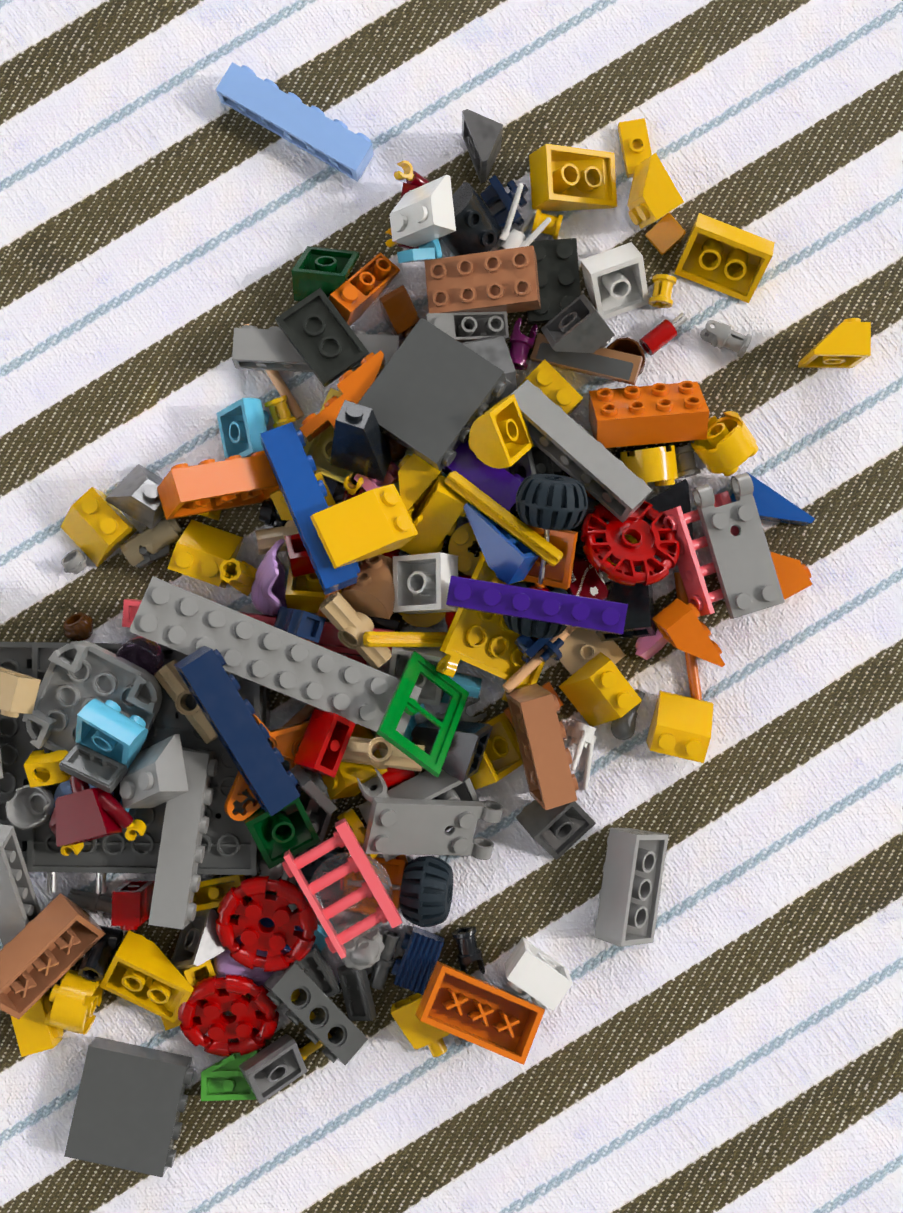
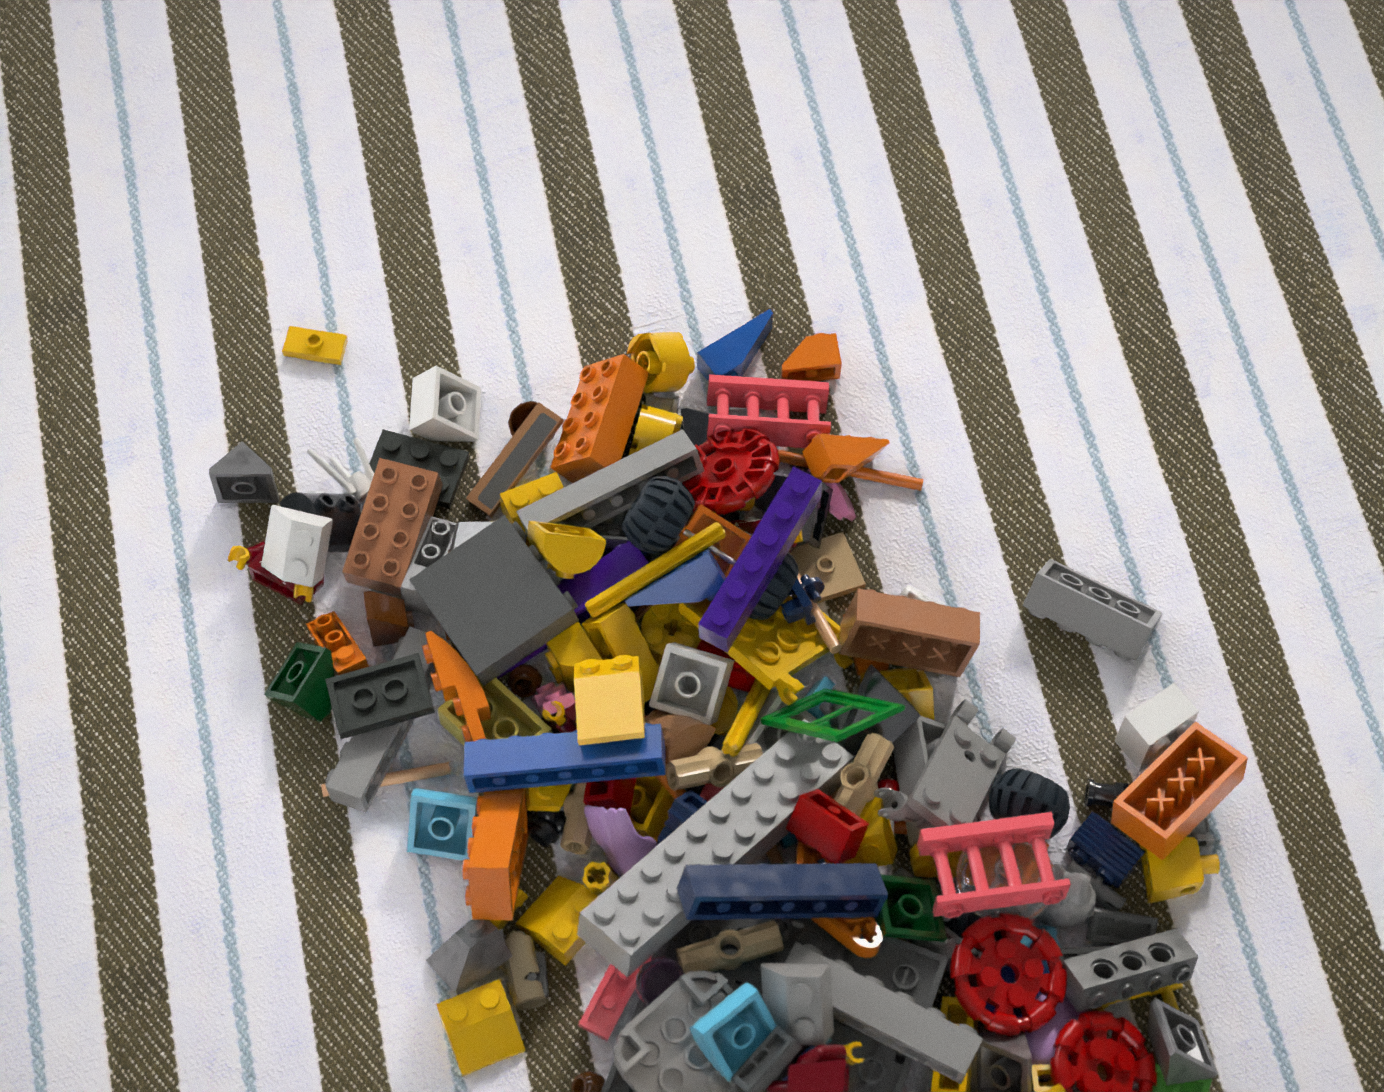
camera: 70 degrees left, 25 degrees down
(74, 562) = (510, 1068): light grey plate -> none
(280, 411) = (447, 778): yellow bush -> none
(295, 121) = (124, 655): light blue brick -> none
(314, 788) = (887, 861): dark grey plate -> none
(359, 442) = (513, 687): black slope -> none
(427, 251) = (333, 570): medium azure tile -> none
(496, 193) = (313, 478): dark blue hips -> none
(520, 345) = (467, 513): magenta piece -> none
(552, 228) = (349, 456): yellow bush -> none
(557, 827) = (1000, 660): flat silver slope -> none
(572, 179) = (319, 412): yellow slope -> none
(578, 328) = (480, 450): flat silver slope -> none
(600, 691) = (872, 560): yellow slope -> none
(625, 726) = (915, 557): dark grey piece -> none
(651, 193) = (373, 339): yellow slope -> none
(661, 334) = (519, 383): red piece -> none
(662, 291) = (485, 372): yellow bush -> none
(665, 234) = (417, 347): light orange slope -> none
(681, 726) = (938, 503): yellow slope -> none
(724, 258) = (467, 303): yellow slope -> none
(724, 337) = (549, 329): light grey piece -> none
(742, 560) = (783, 382): light grey hinge -> none
(842, 347) = (605, 230): yellow slope -> none

